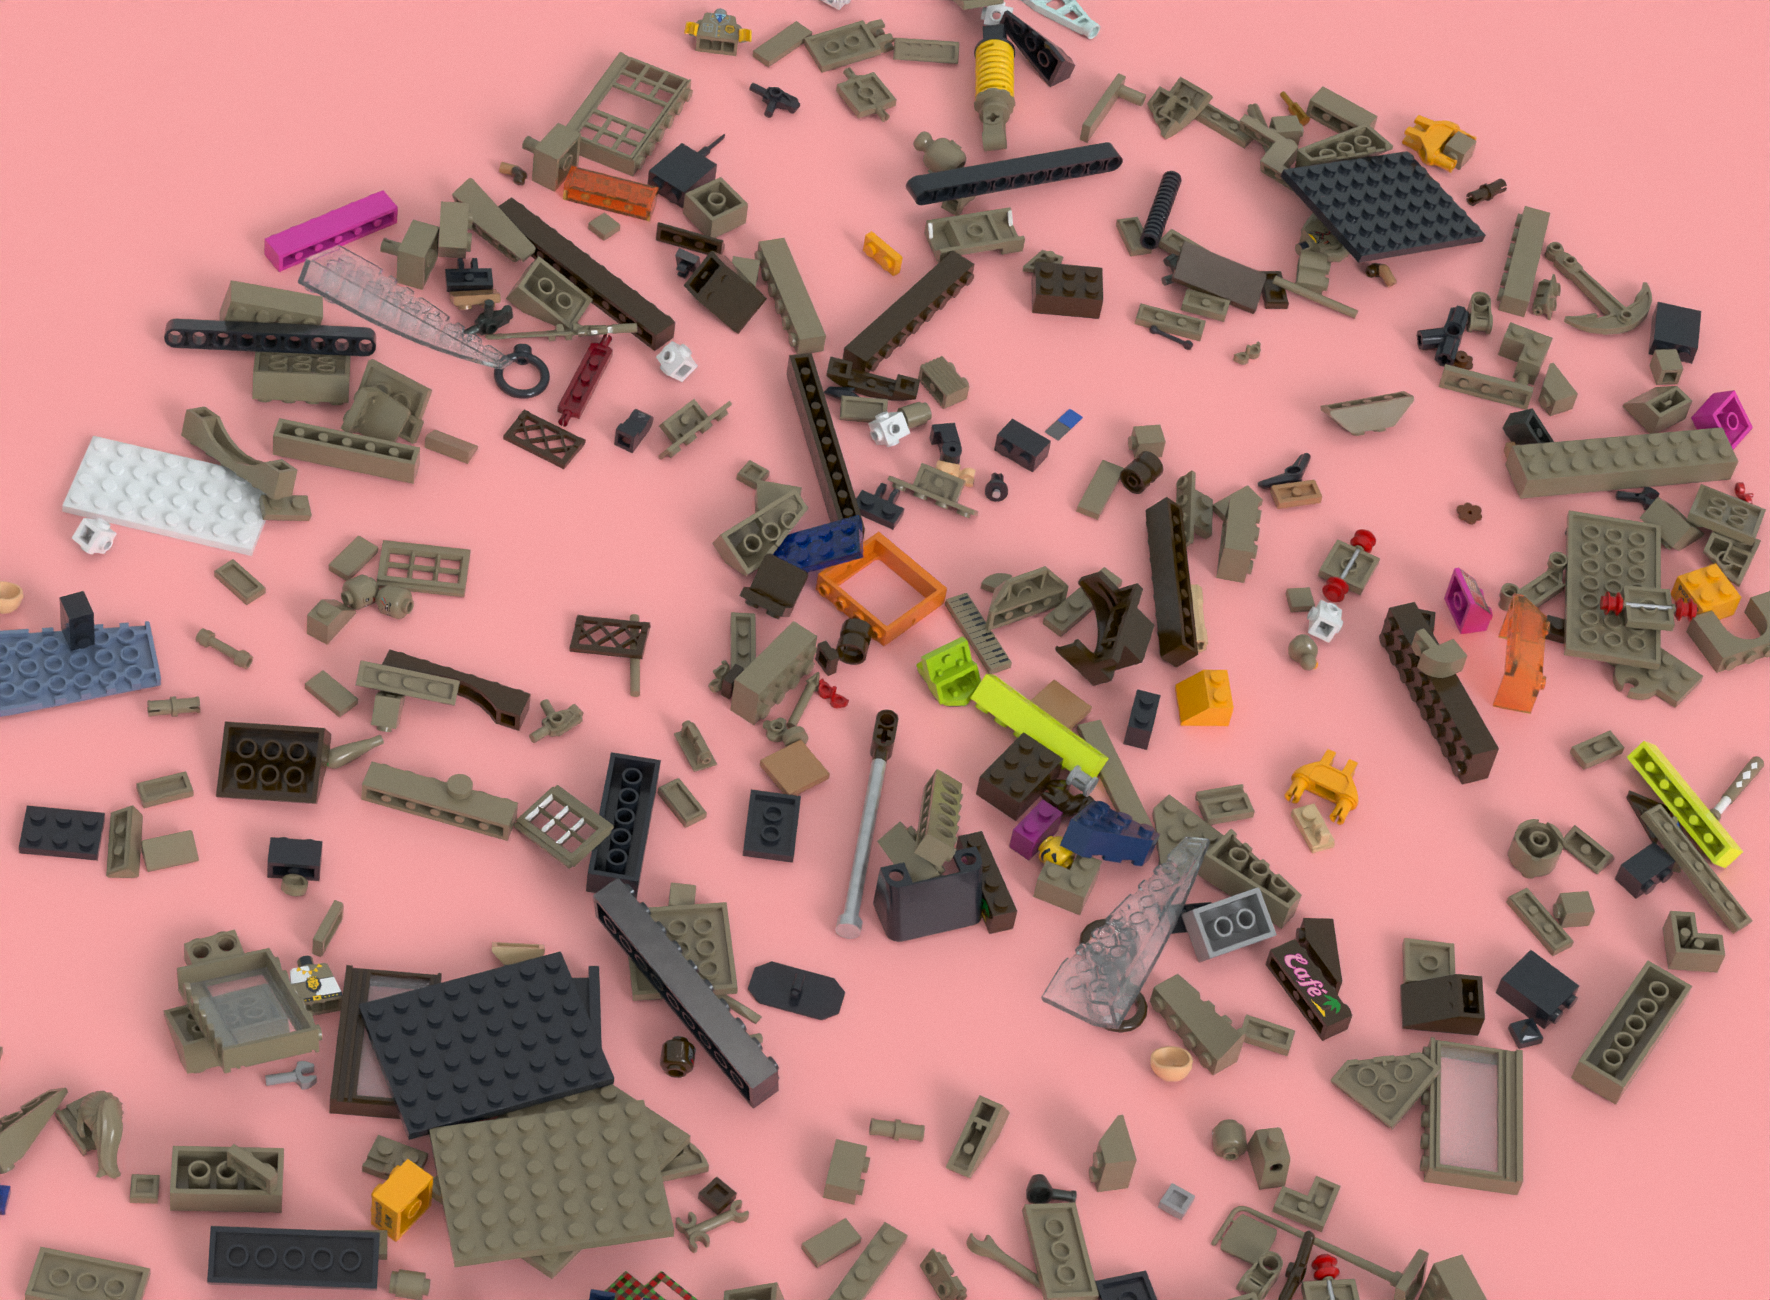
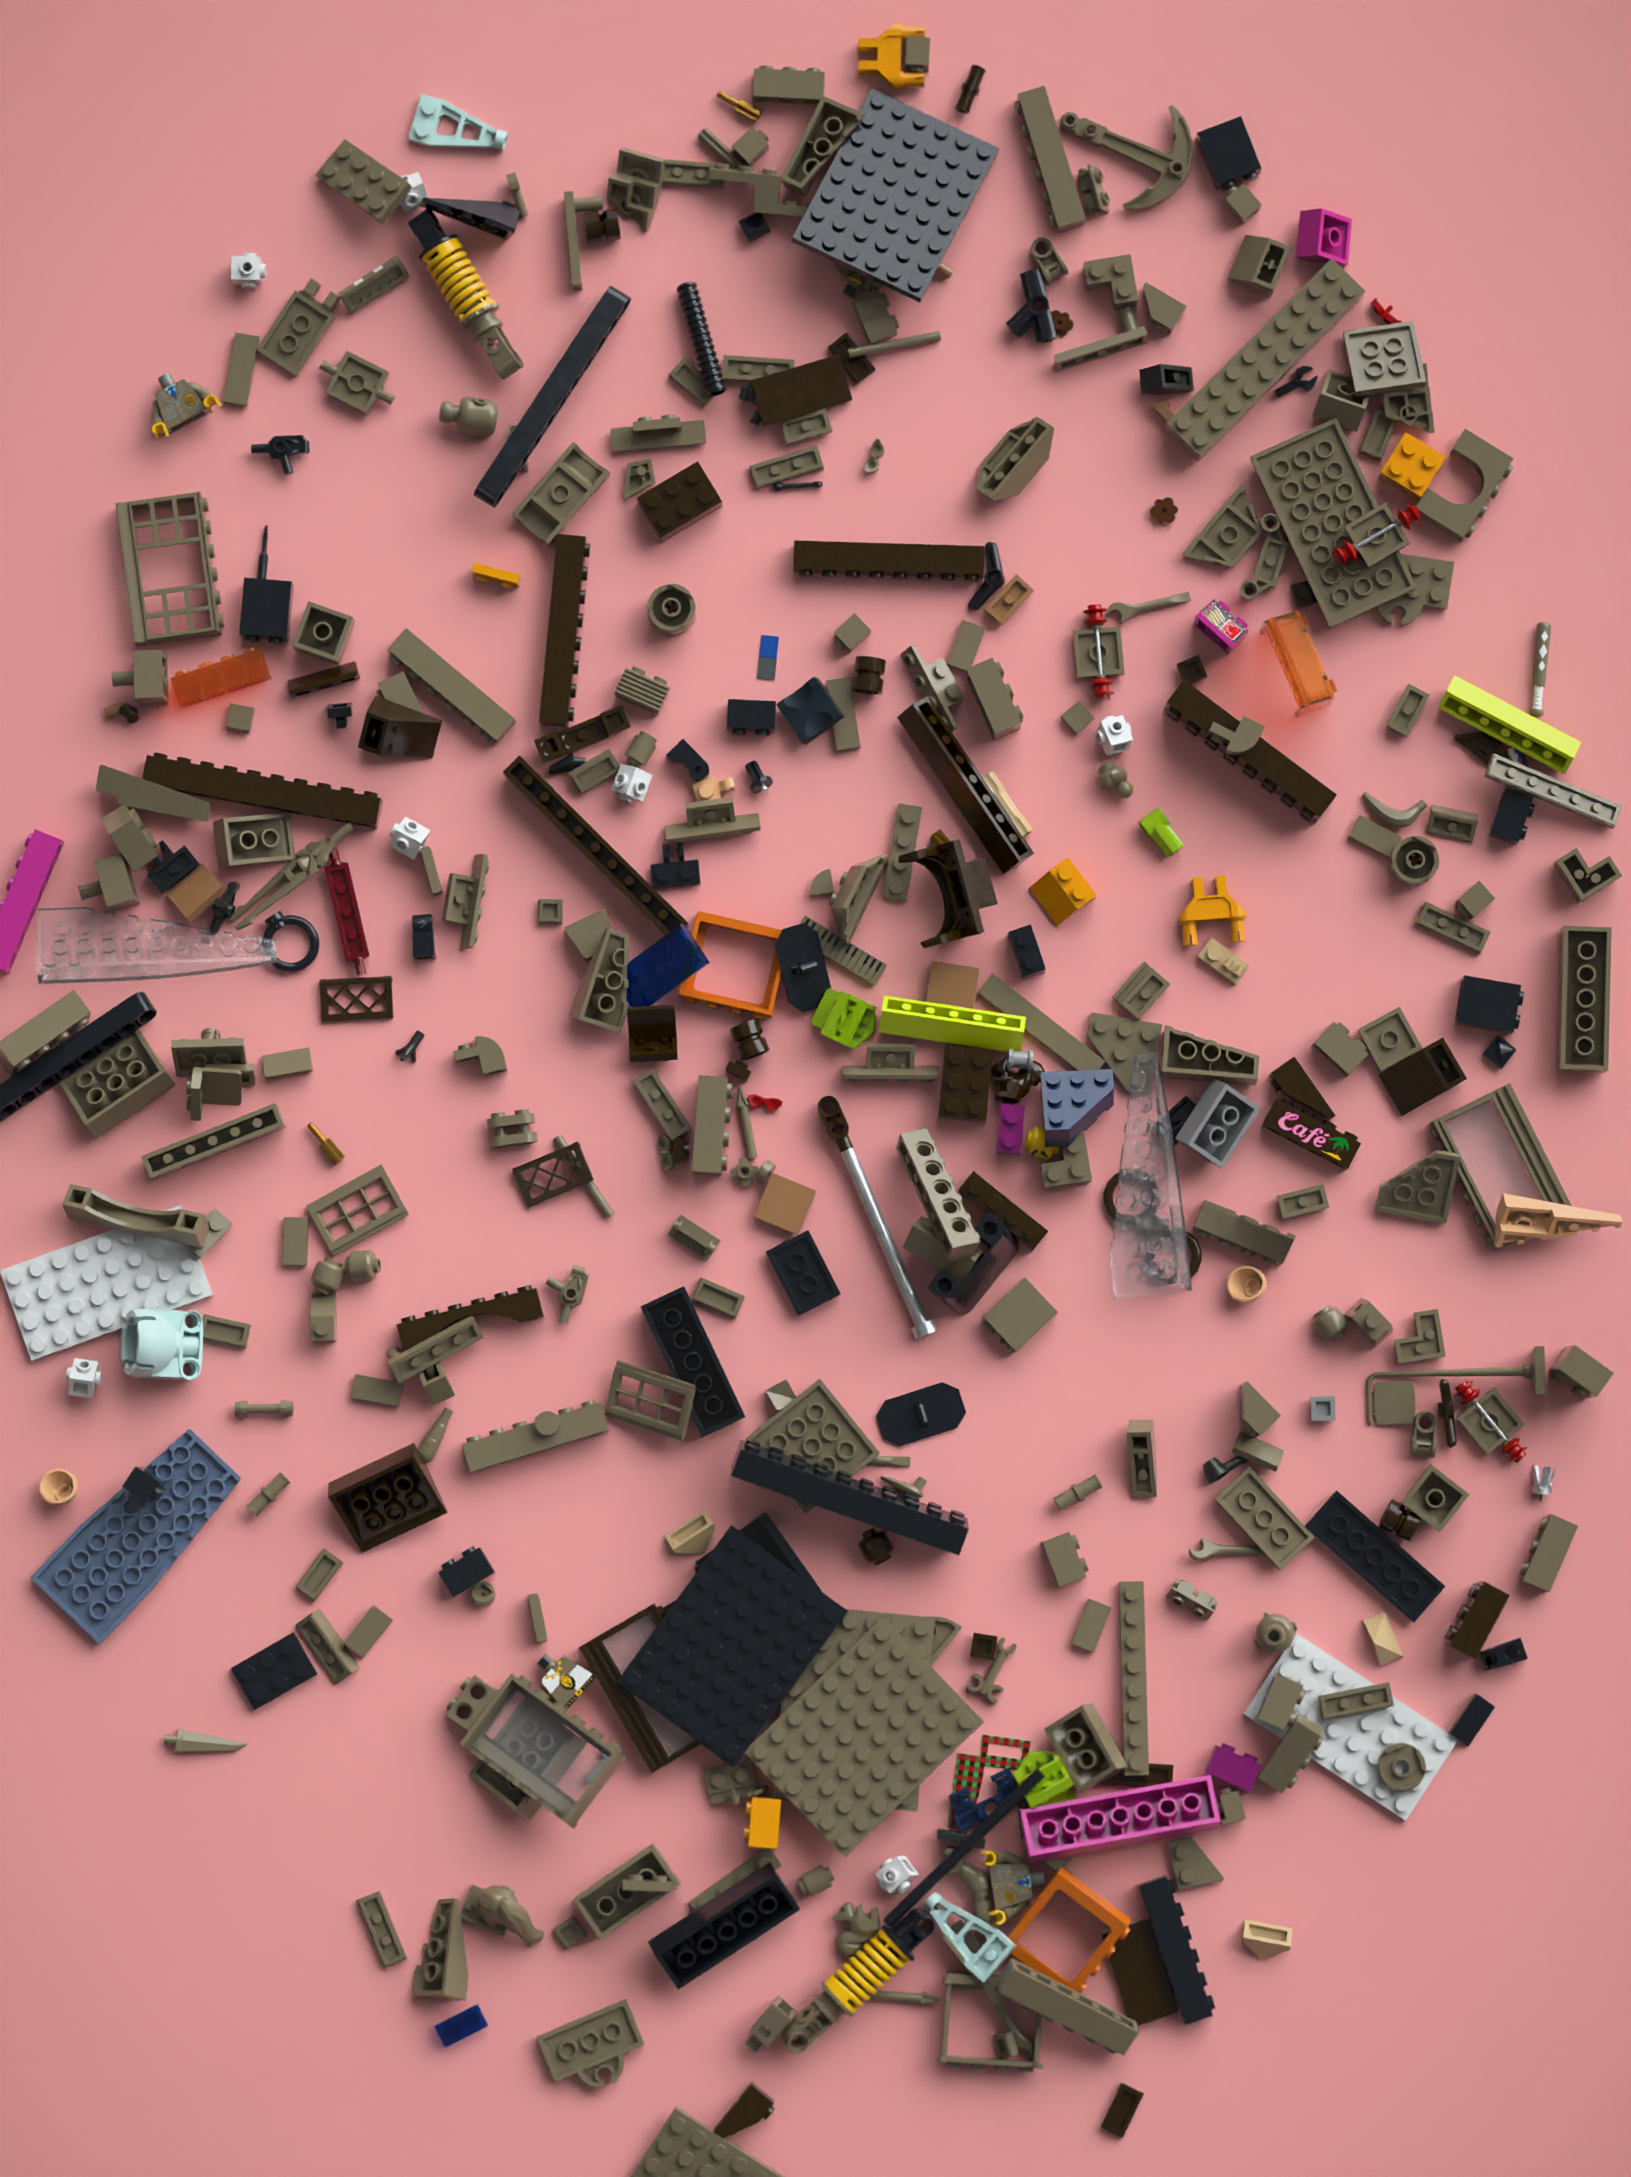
camera: 20 degrees left, 35 degrees up
(182, 548) = (160, 1343): none -> light aqua piece
(436, 514) = (327, 1145): none -> pearl gold axle
(562, 492) = (410, 1048): none -> pearl dark grey bar
(600, 587) = (522, 1119): none -> dark tan brick
(620, 524) = (489, 1052): none -> dark tan brick
(676, 392) = (431, 870): none -> dark tan tile
(938, 616) = (802, 966): none -> black shield
(943, 966) = (1019, 1315): none -> dark tan brick
(963, 724) = (890, 1062): none -> dark tan bracket
(1009, 345) = (666, 597): none -> dark tan brick
(1075, 465) = (810, 710): none -> black brick
(1080, 61) = (516, 192): none -> dark tan bar
(1081, 242) = (658, 434): none -> dark tan bracket
(1090, 1197) = (1257, 1451): none -> dark tan tile
(1130, 109) = (602, 225): none -> dark brown wheel
(1213, 415) = (888, 559): none -> dark brown brick
(1253, 175) = (754, 226): none -> black tile
(1319, 705) = (1158, 828): none -> lime piece
(1378, 944) = (1341, 1048): none -> dark tan brick
(1392, 557) = (1130, 610): none -> dark tan piece
(1477, 1158) = (1529, 1218): none -> light nougat wedge
(1505, 815) = (1374, 836): none -> dark tan tile
(1513, 554) = (1228, 533): none -> dark tan wing
(1534, 811) = (1391, 816): none -> dark tan piece
(1686, 563) = (1377, 435): none -> dark tan tile

